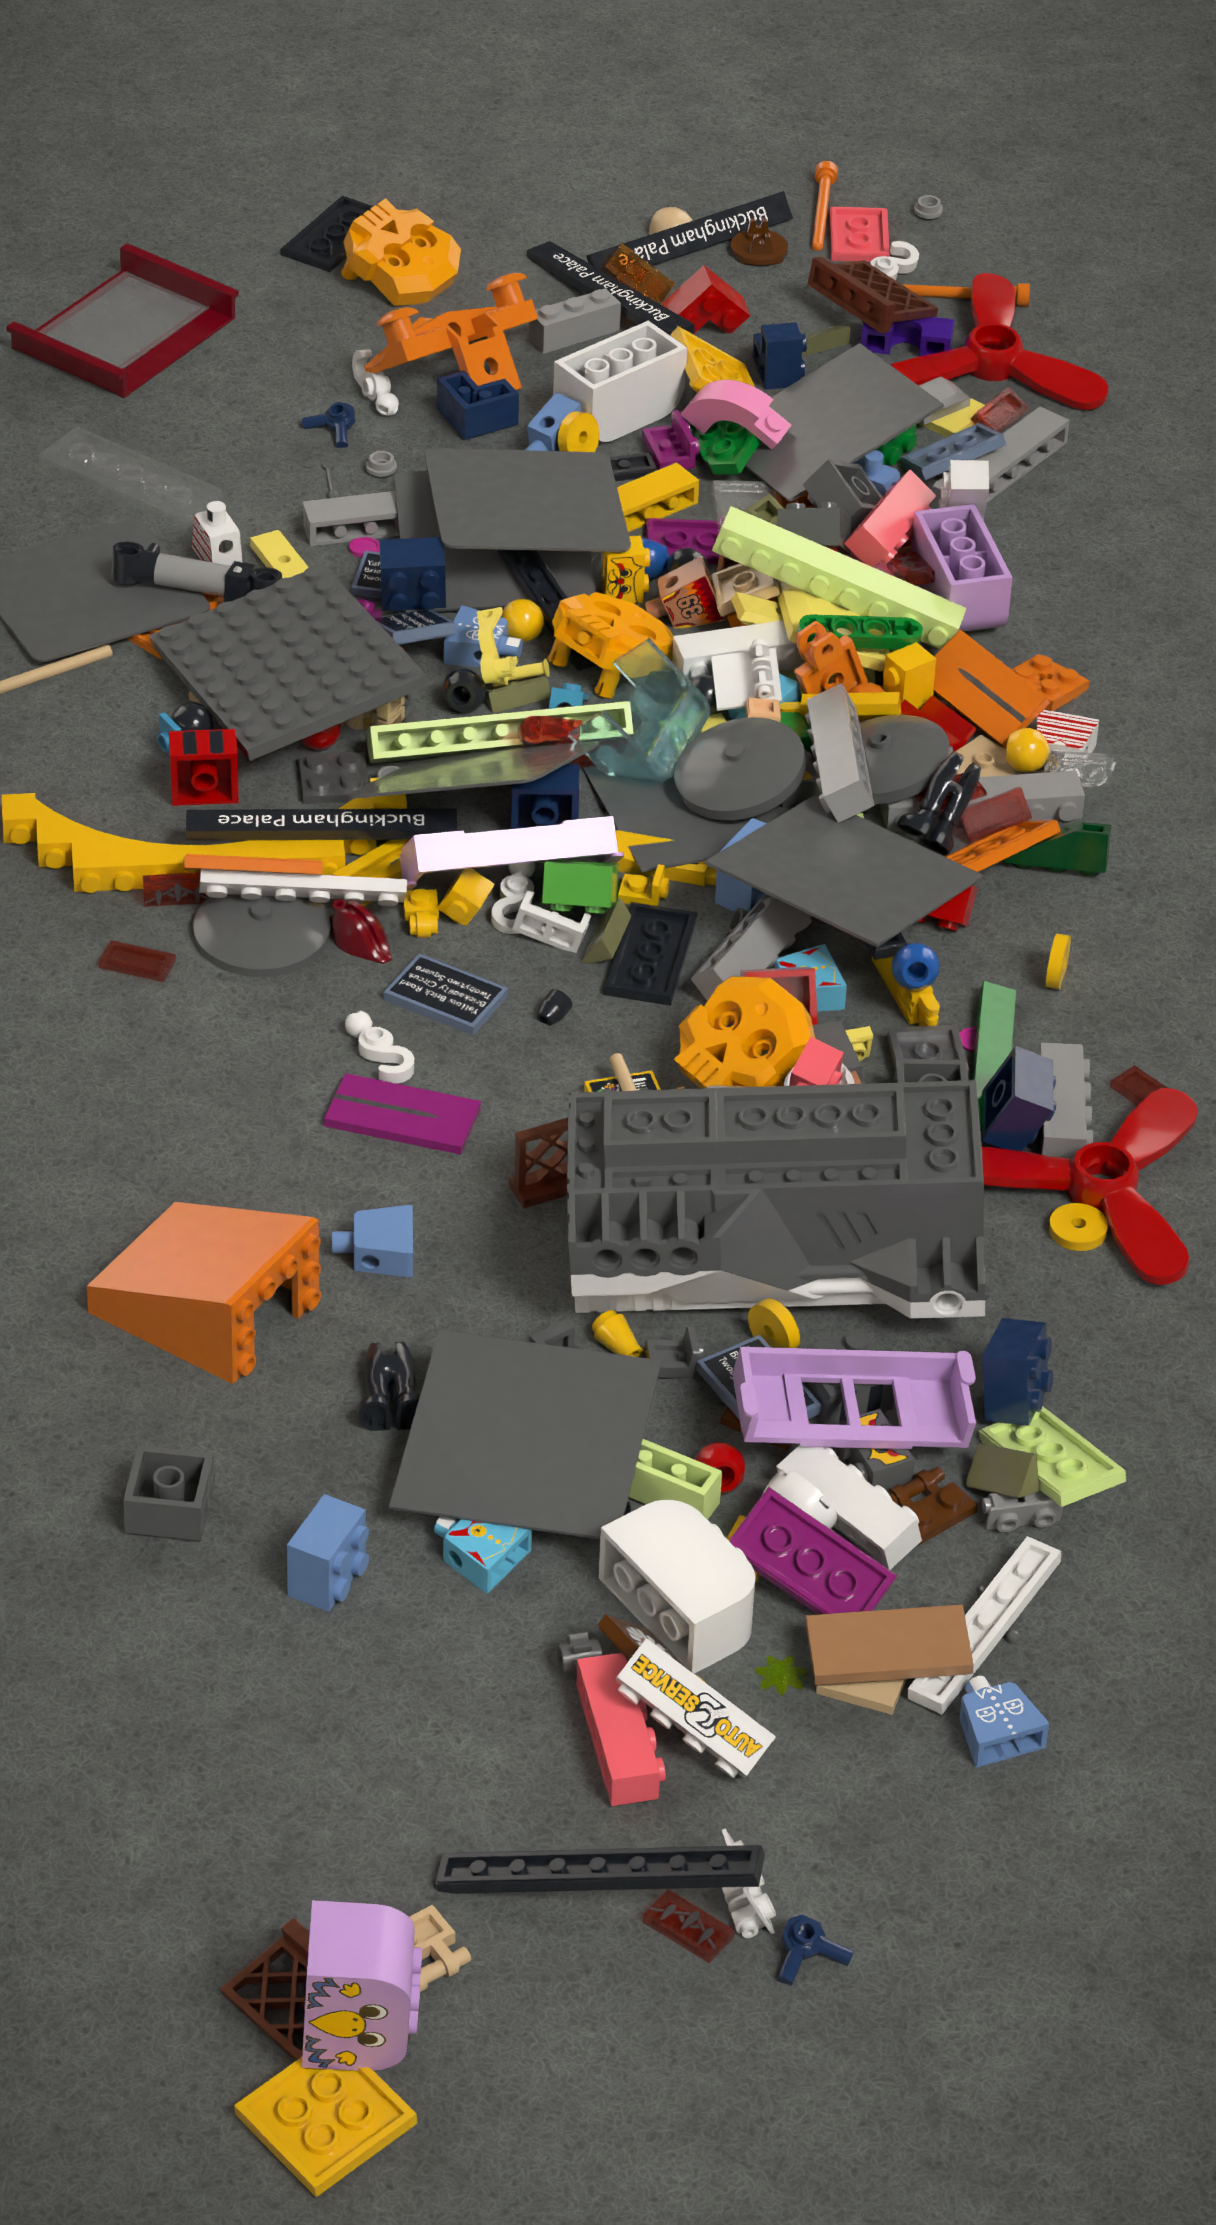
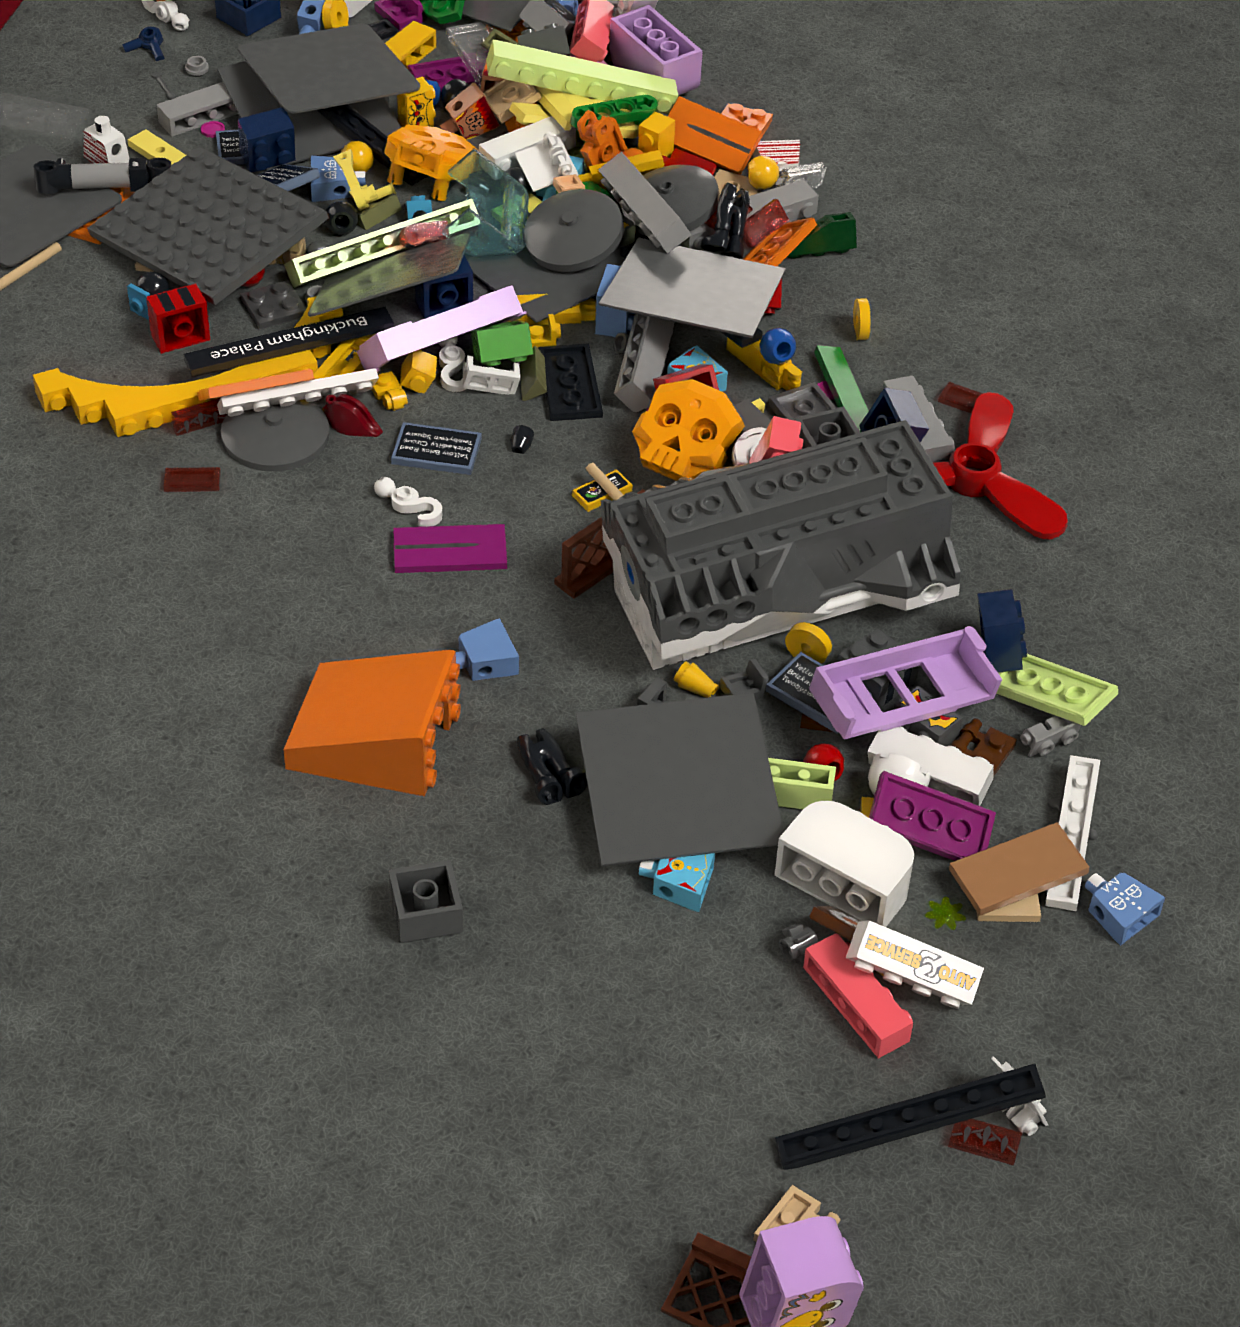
camera: 20 degrees left, 5 degrees up
(327, 1553) = (575, 916): medium blue brick -> none
(804, 1939) = (1076, 1125): dark blue piece -> none
(911, 568) = (622, 59): clear red tile -> none
(1003, 1471) = (1028, 709): olive slope -> none
(1088, 1237) = (970, 501): yellow piece -> none

